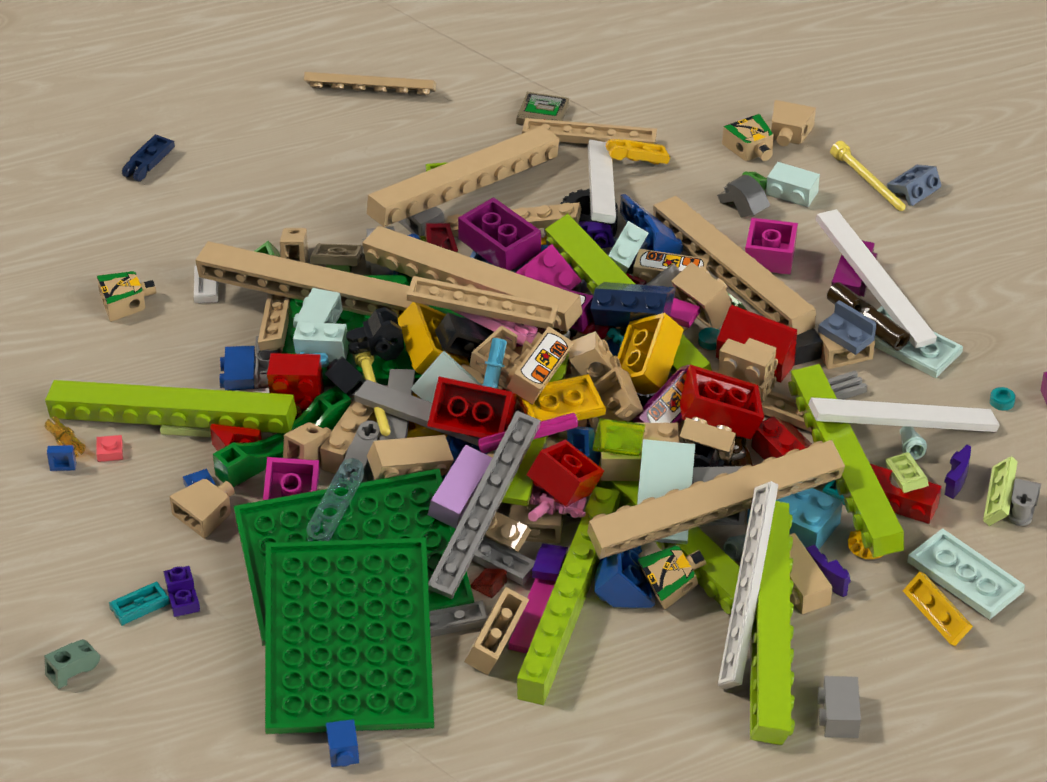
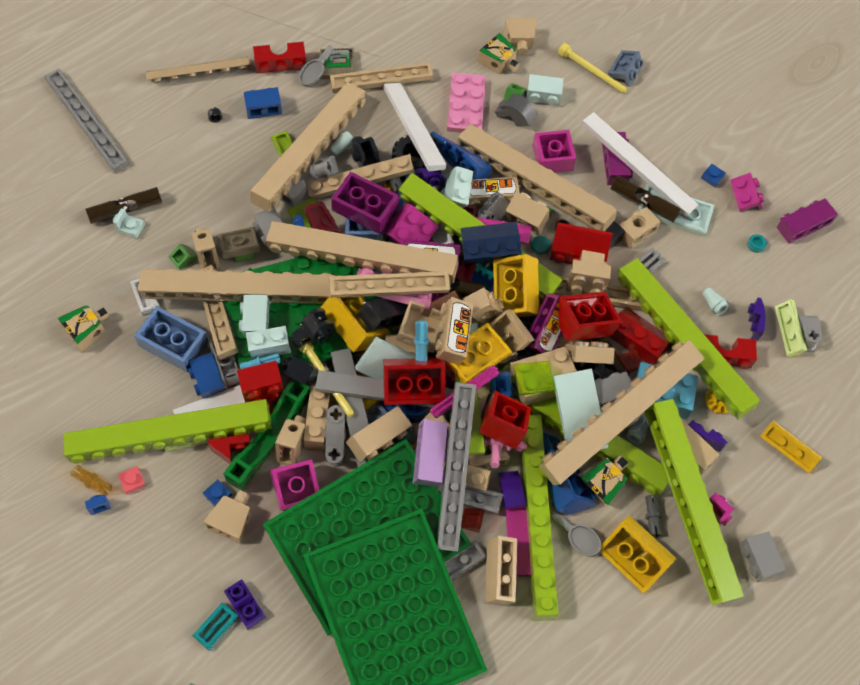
camera: 25 degrees left, 20 degrees up
(147, 157) = (50, 183): dark blue hinge -> none
(204, 194) = (111, 208): none -> dark brown piece
(214, 323) = (171, 338): none -> medium blue brick
(216, 213) = (127, 224): none -> light aqua bracket
(217, 109) = (87, 120): none -> light grey tile
(331, 500) = (344, 497): clear light blue beam -> none
(364, 131) = (217, 118): none -> black hinge
(430, 129) = (262, 103): none -> blue brick
(467, 201) = (324, 167): none -> light grey piece
(487, 94) = (267, 61): none -> red arch
(509, 109) = (314, 68): none -> light grey piece
(509, 187) = (342, 143): none -> light aqua cone
(529, 193) = (365, 151): none -> black hinge
(615, 630) = (580, 536): none -> light grey piece
(637, 151) = (424, 87): yellow hinge -> none
(677, 662) = (636, 554): none -> yellow slope
(687, 177) = (466, 102): none -> bright pink plate
(718, 635) = (653, 515): none -> dark grey pin
(748, 586) = (671, 479): white tile -> none
(810, 647) = (721, 508): none -> dark pink bracket
(848, 328) = (641, 217): sand blue bracket -> none
(903, 414) = (708, 286): white tile -> none
(906, 472) = (728, 334): yellowish green tile -> none
(966, 573) = (797, 408): light aqua plate -> none
(978, 317) = (713, 175): none -> blue plate
(1015, 341) = (746, 192): none -> dark pink bracket

